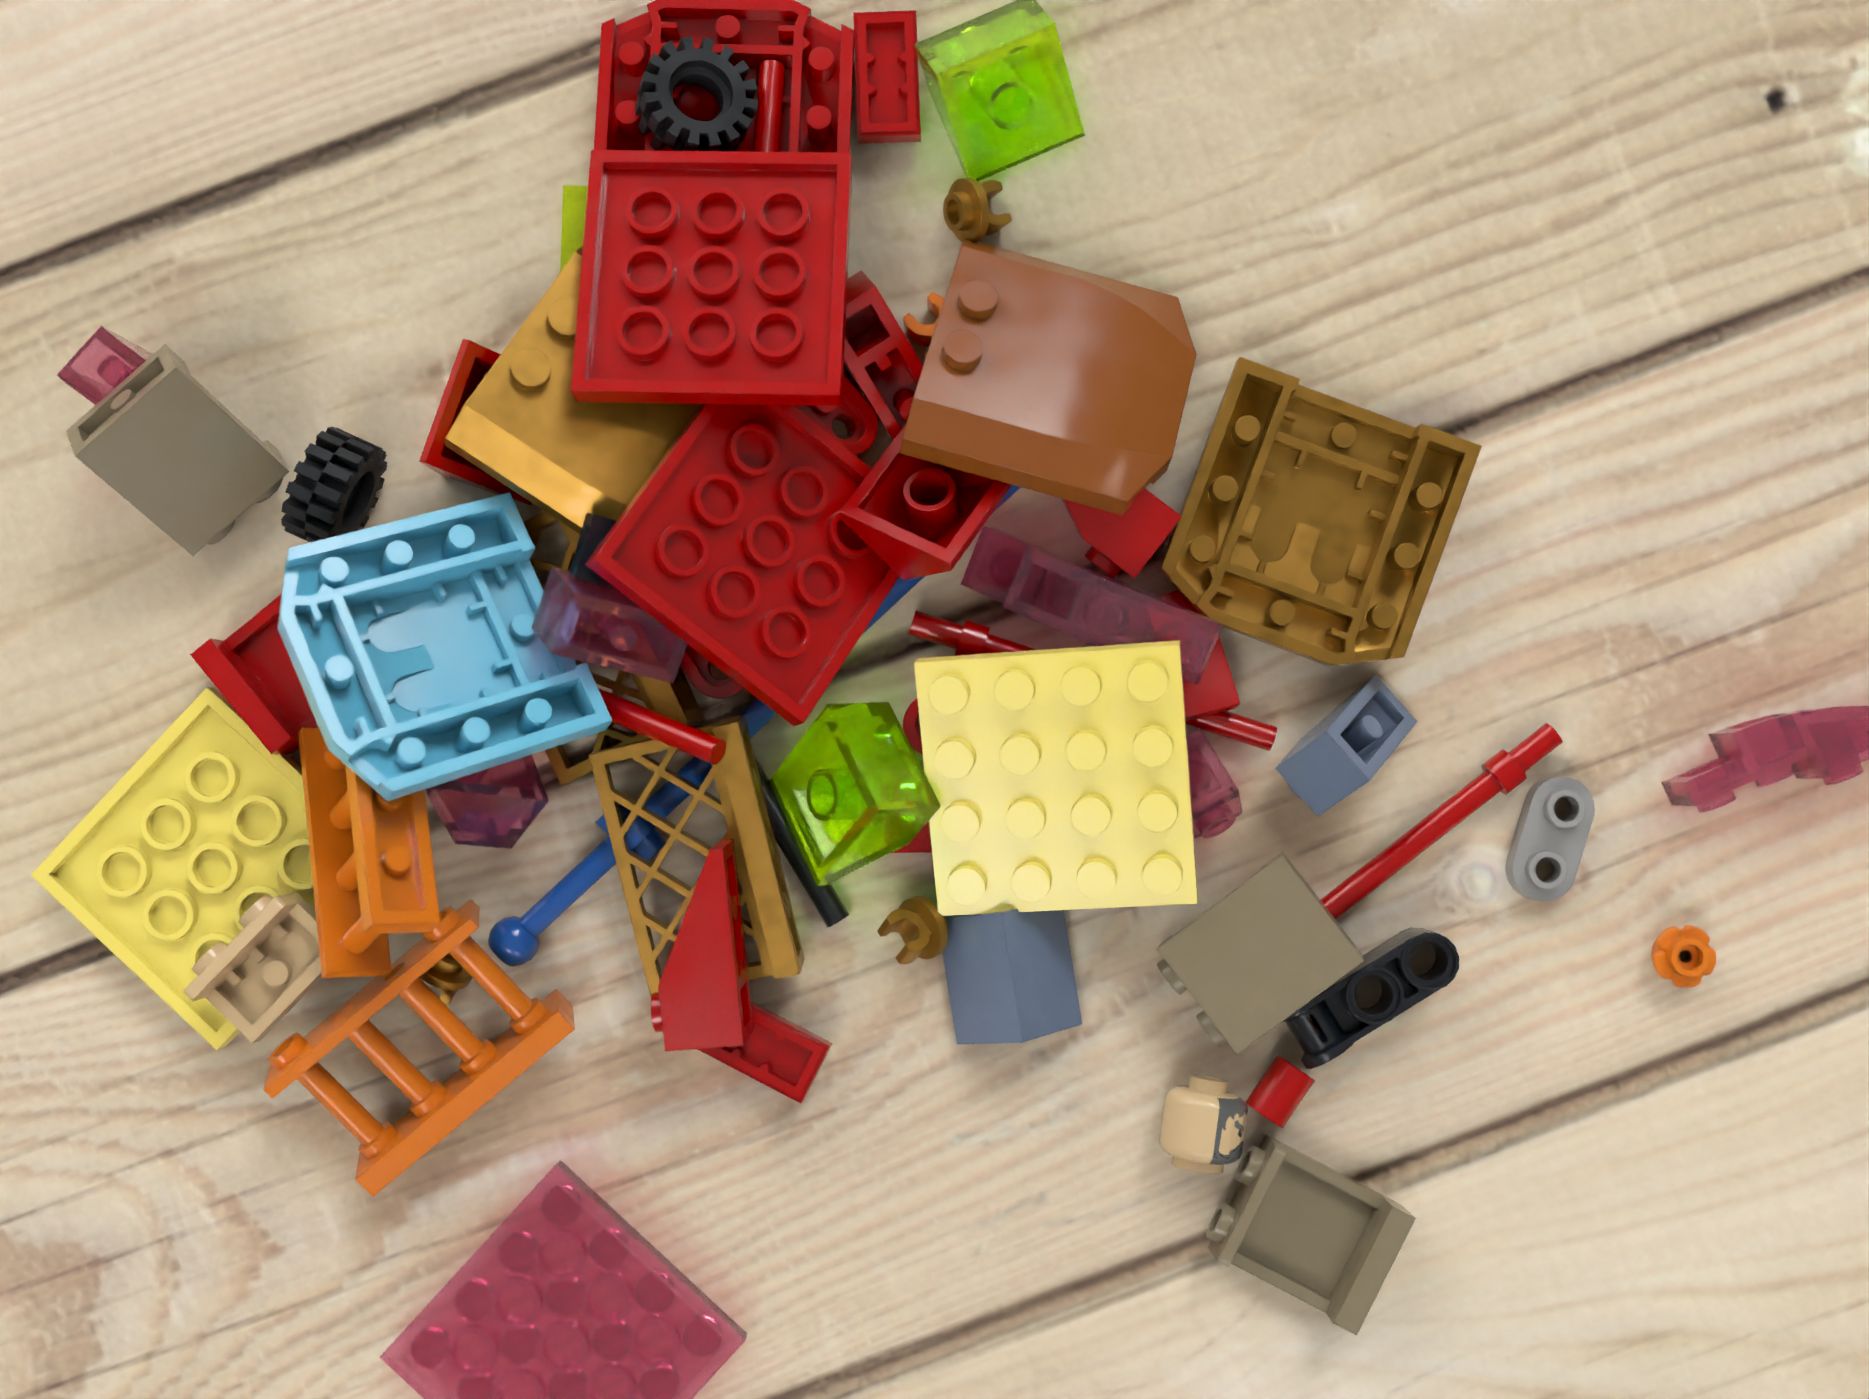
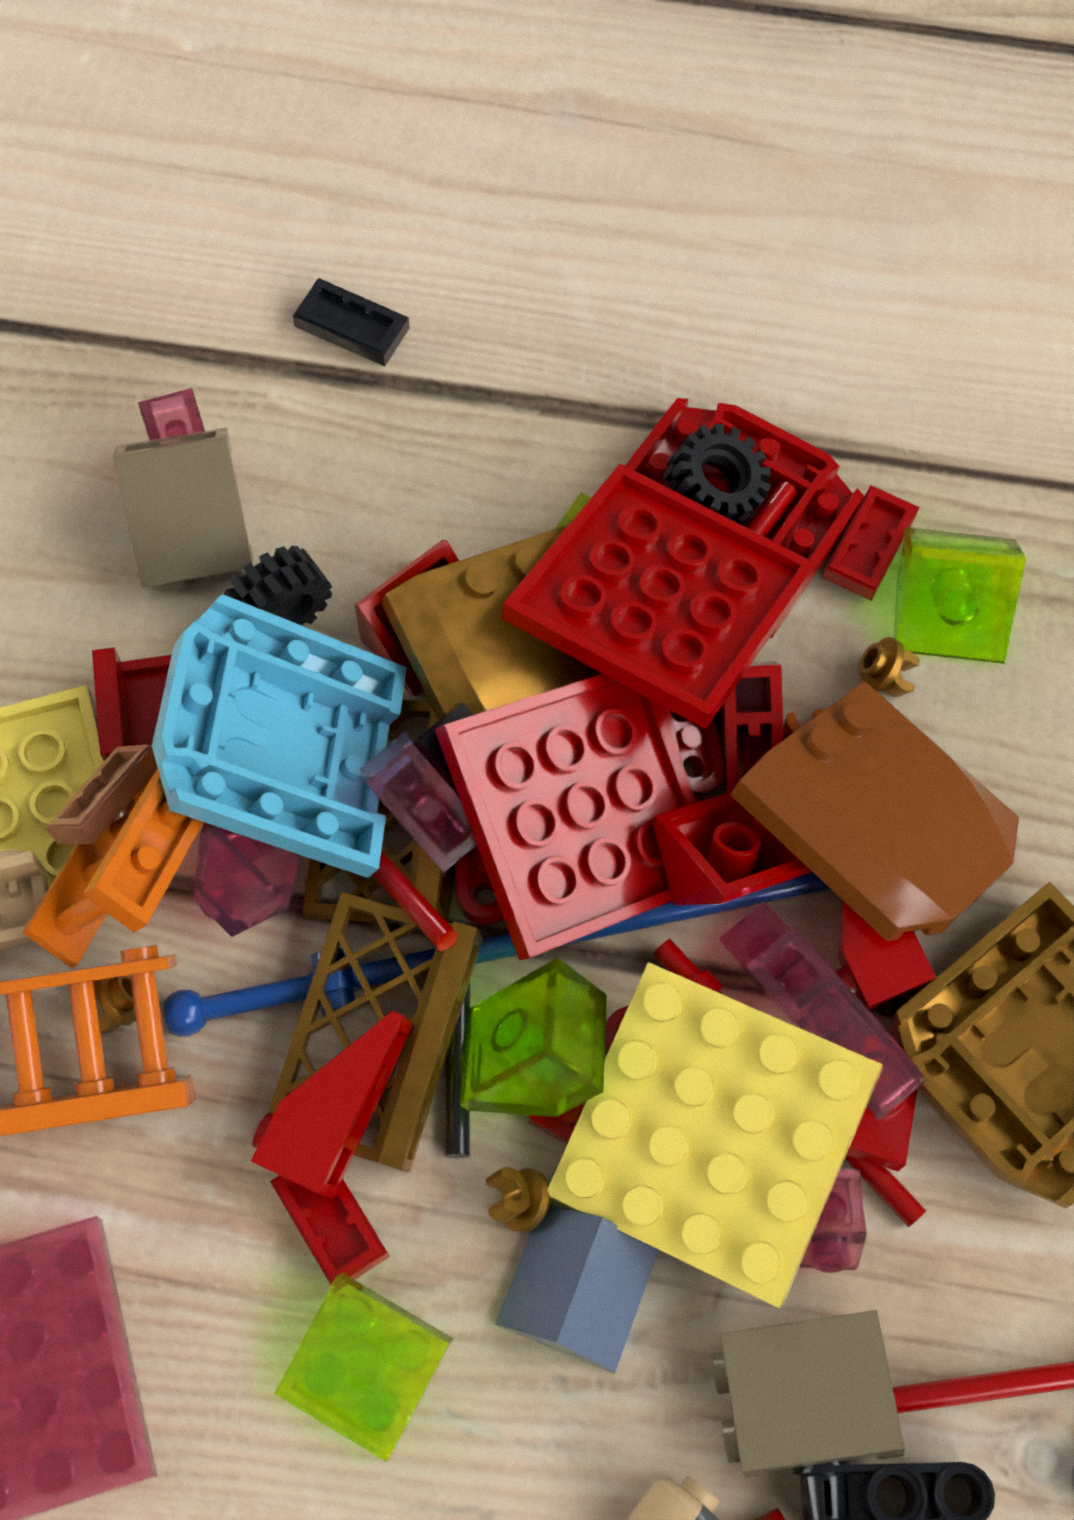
camera: 30 degrees right, 20 degrees down
(206, 126) = (351, 322): none -> black plate
(305, 800) = (104, 796): none -> nougat plate
(867, 1149) = (363, 1366): none -> clear neon green plate
(1346, 746) = (980, 1258): sand blue slope -> none

